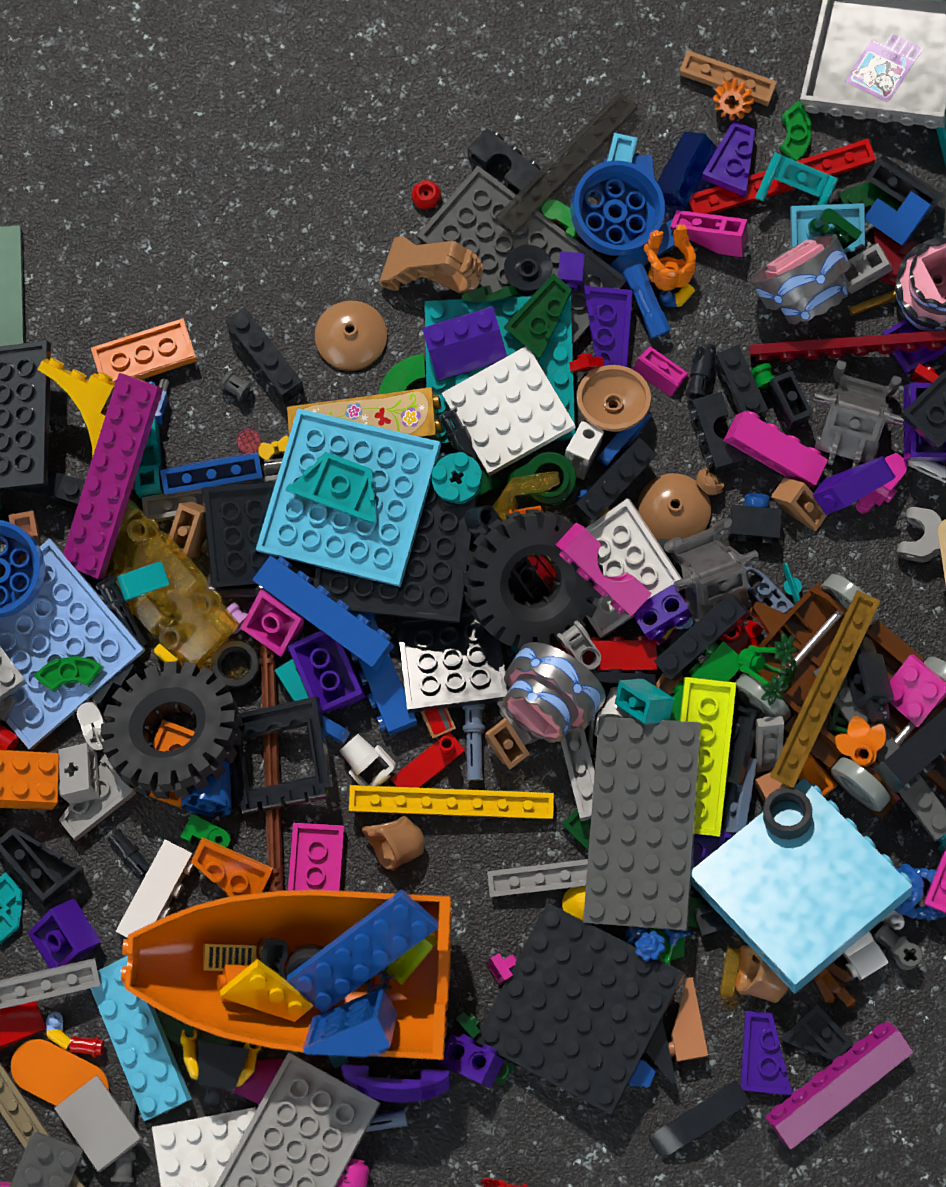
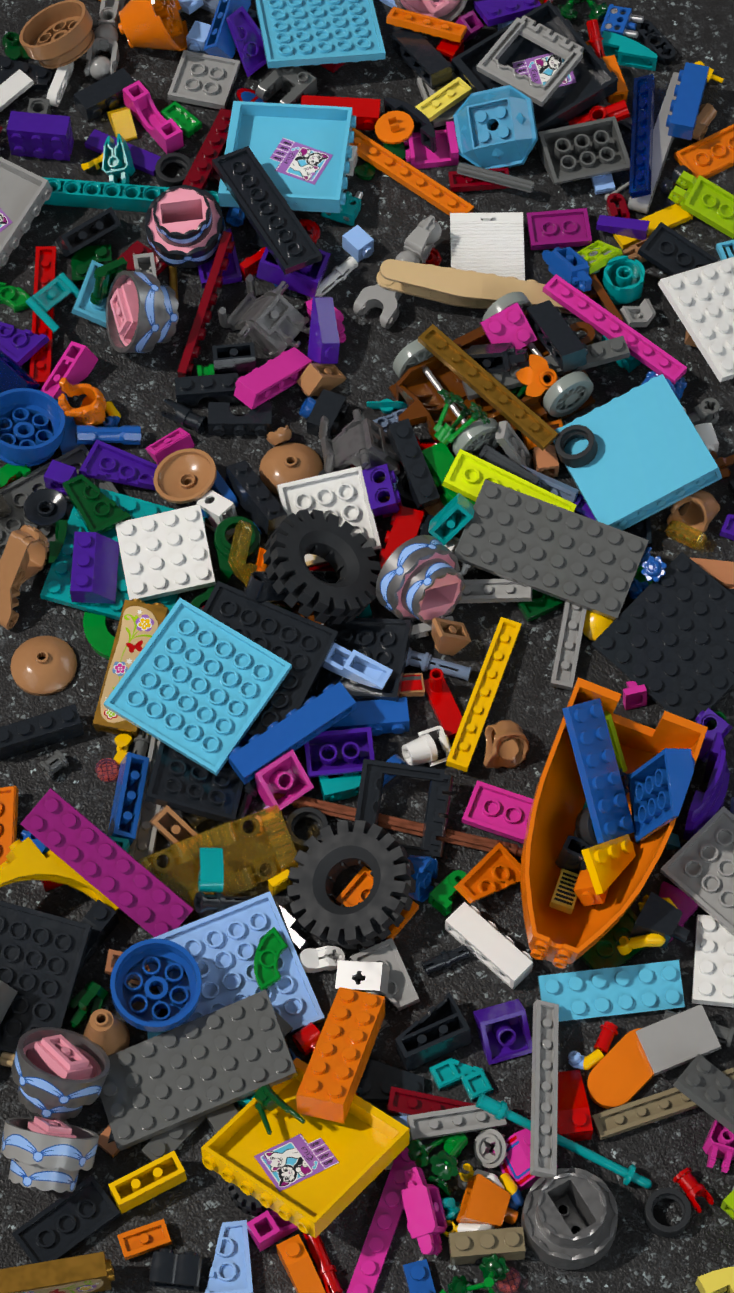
camera: 75 degrees left, 15 degrees down
(339, 486) = (189, 684): teal wing -> none
(430, 656) = (357, 667): none -> light blue slope
(444, 471) = (221, 585): teal plate -> none
(459, 436) = (172, 593): black piece -> none
(577, 642) = (383, 549): light grey piece -> none
(583, 549) = (316, 514): dark pink arch -> none
(586, 363) = (144, 489): red plate -> none
(901, 223) = (118, 242): blue tile -> none

